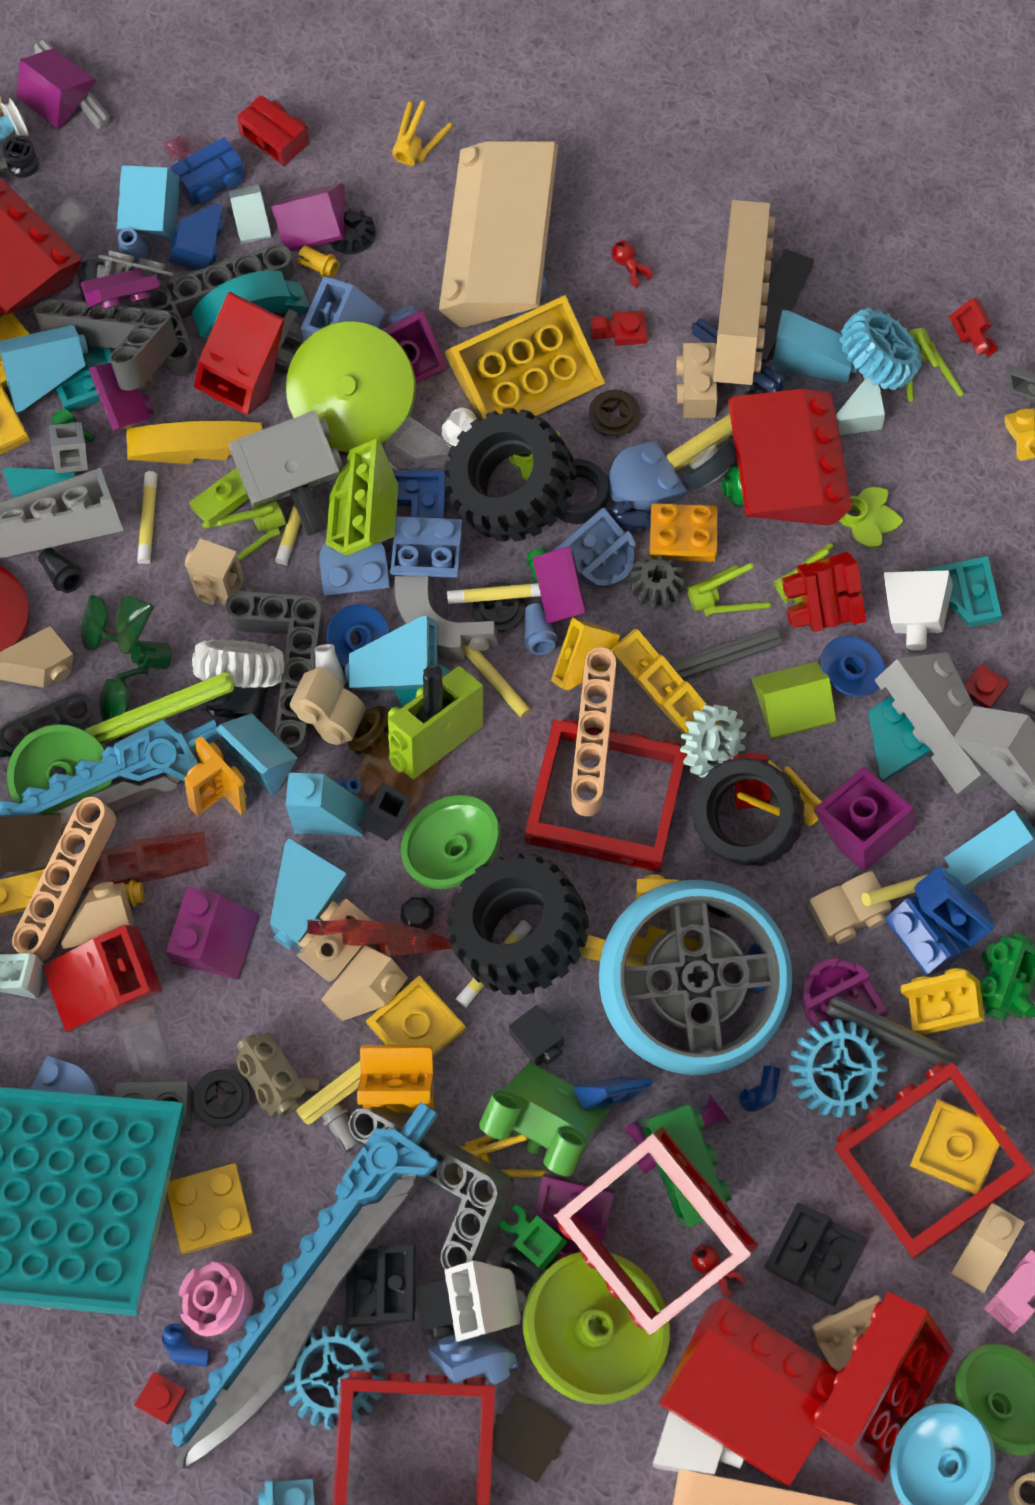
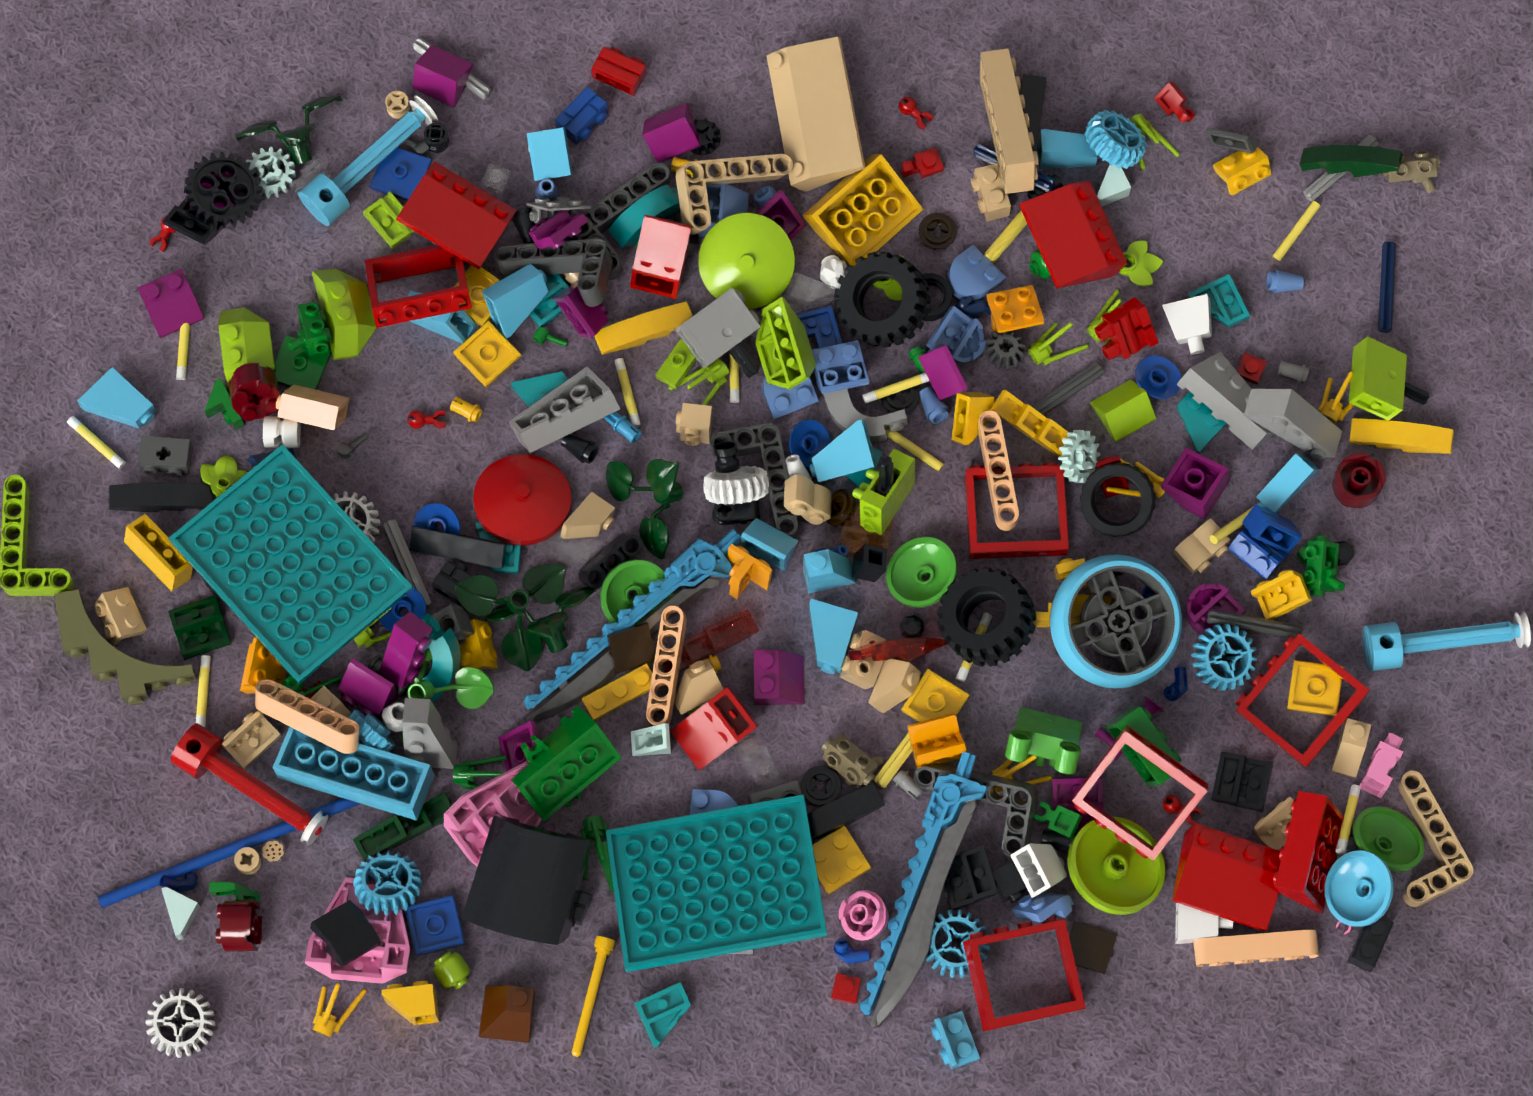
camera: 20 degrees left, 5 degrees up
(68, 447) = (555, 355): light grey brick -> none
(124, 554) = (623, 426): none -> dark azure axle
(162, 708) = (696, 531): lime axle -> none
(175, 148) = (550, 102): clear pink hand -> none
(195, 238) = (592, 173): blue slope -> none
(235, 1143) = (844, 811): none -> black slope
(237, 624) = (726, 457): none -> black wheel
(249, 214) = (622, 139): light aqua slope -> none
(351, 275) = (723, 175): none -> tan beam
(408, 145) = (724, 60): yellow plant -> none
(537, 1036) = (1019, 688): black brick -> none
(610, 1091) = (1080, 711): blue slope -> none
(710, 465) = (1018, 255): black wheel -> none
(955, 1353) = (1348, 819): none -> light yellow bar

